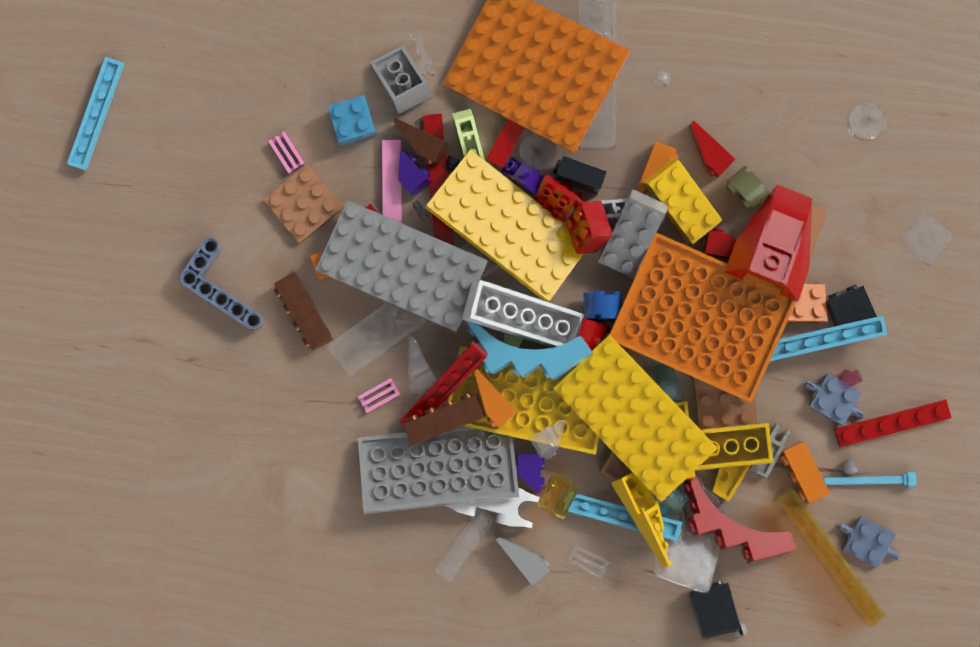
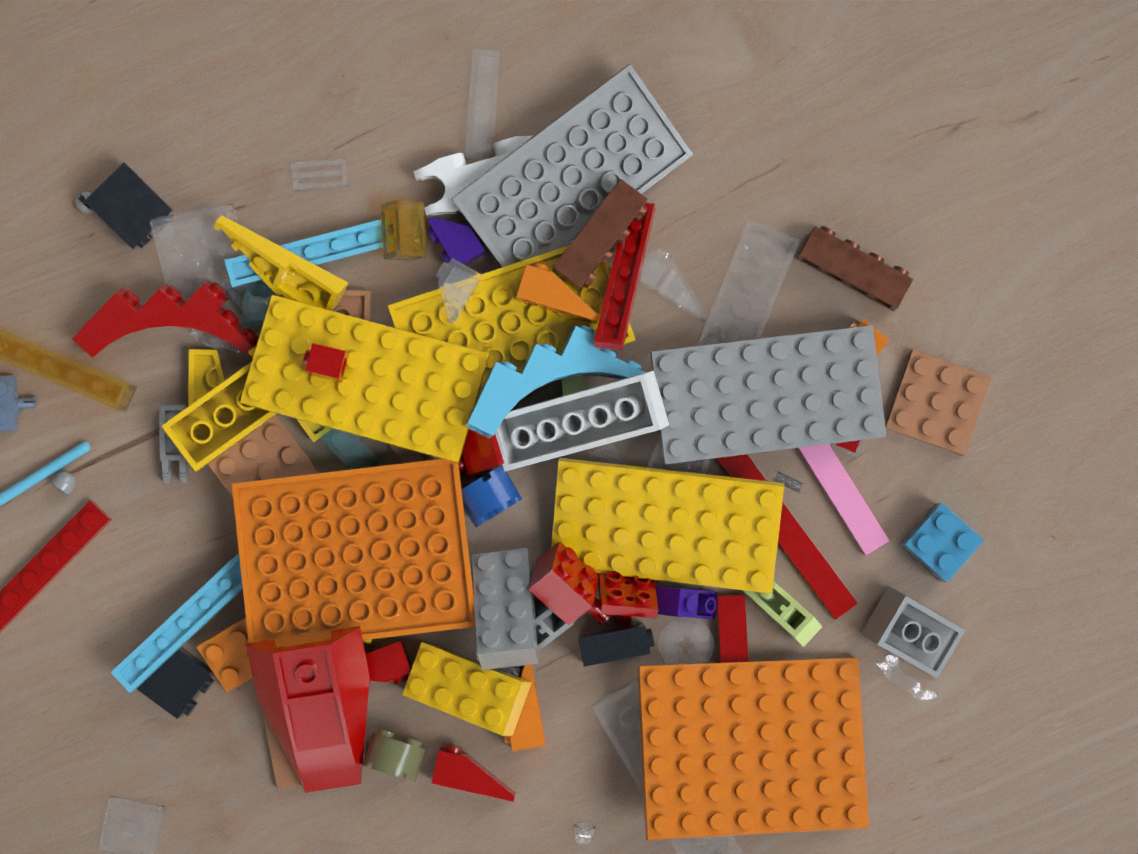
camera: 155 degrees right, 0 degrees up
(215, 291) = (978, 228): sand blue beam -> none
(278, 139) = (1019, 463): bright pink tile -> none
(364, 403) = (709, 202): bright pink tile -> none
(411, 174) = (825, 518): dark purple slope -> none
(424, 144) = (832, 567): copper slope -> none
(452, 162) = (784, 565): black hinge -> none
(527, 561) = (396, 129): light grey slope -> none
(653, 440) = (325, 362): none -> red brick
(804, 472) = (116, 441): orange brick -> none
(834, 399) = (131, 555): sand blue plate -> none
(851, 378) = (126, 594): clear pink piece -> none

